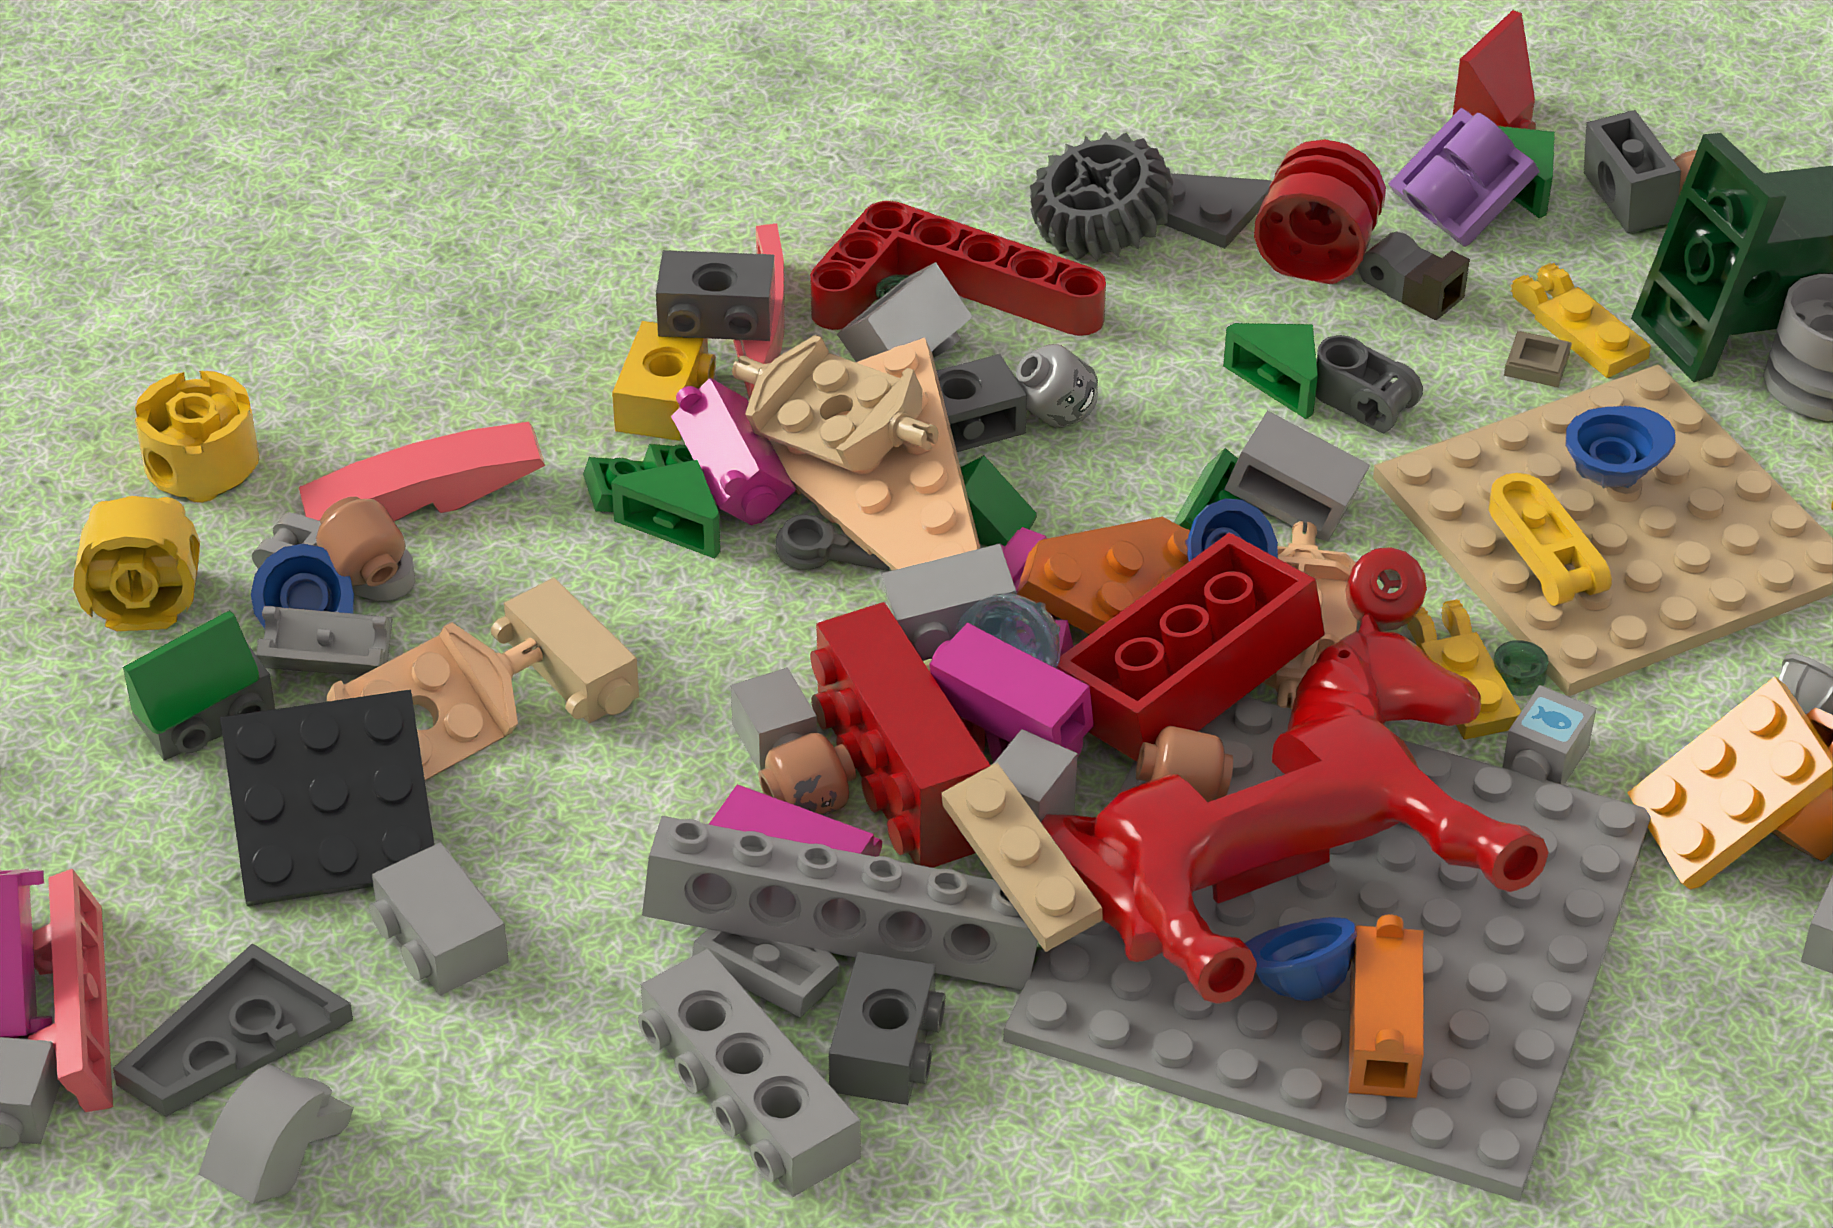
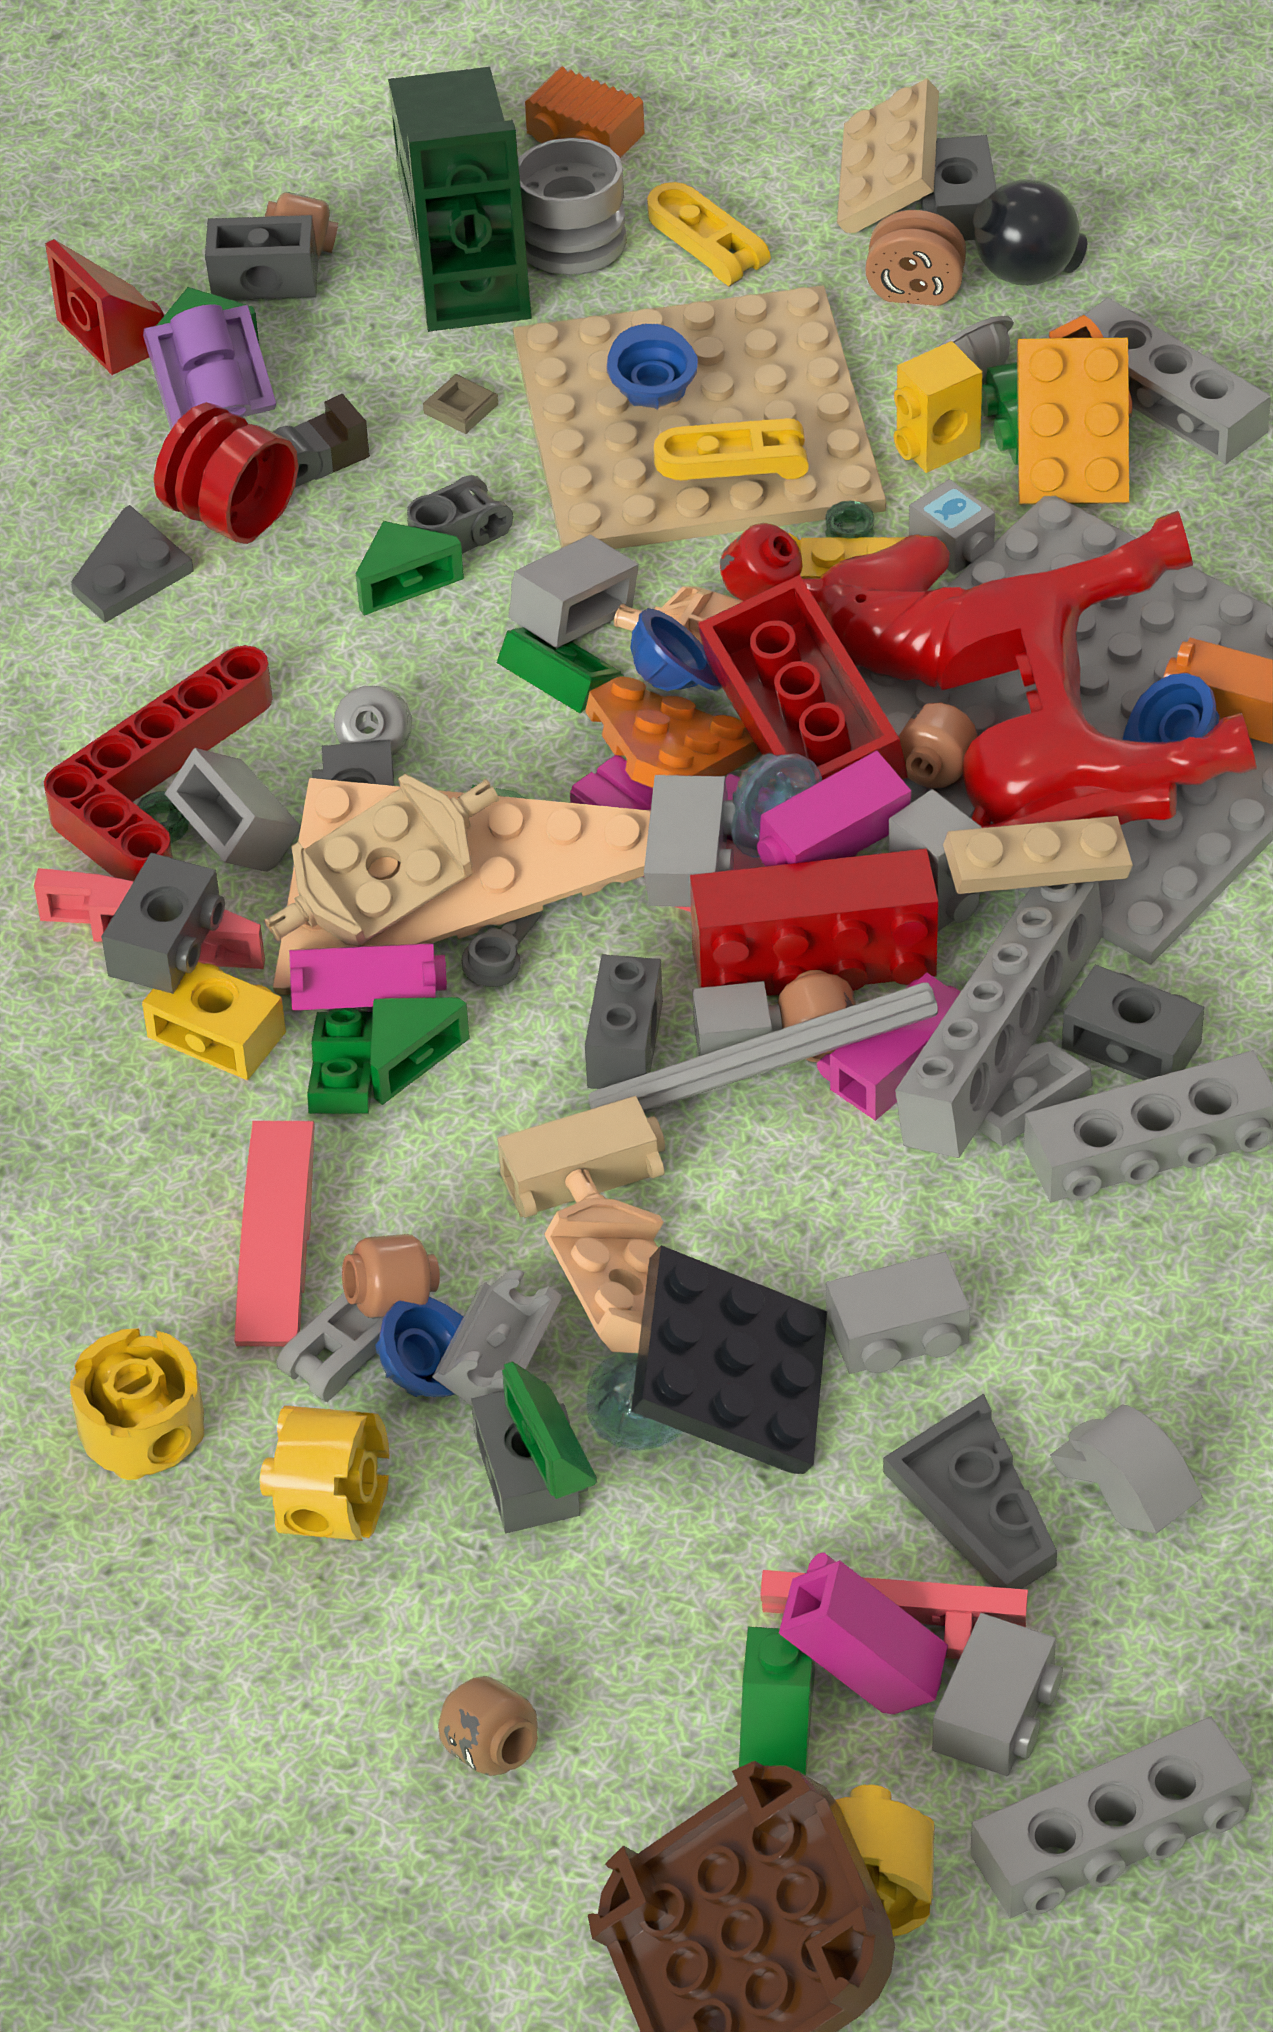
camera: 70 degrees left, 5 degrees up
(728, 742) = (774, 1049): none -> light grey axle
(743, 638) = (623, 1020): none -> dark grey brick
(1102, 196) = (76, 614): dark grey gear -> none
(1580, 320) = (422, 361): yellow hinge -> none
(1696, 671) = (938, 407): none -> yellow brick

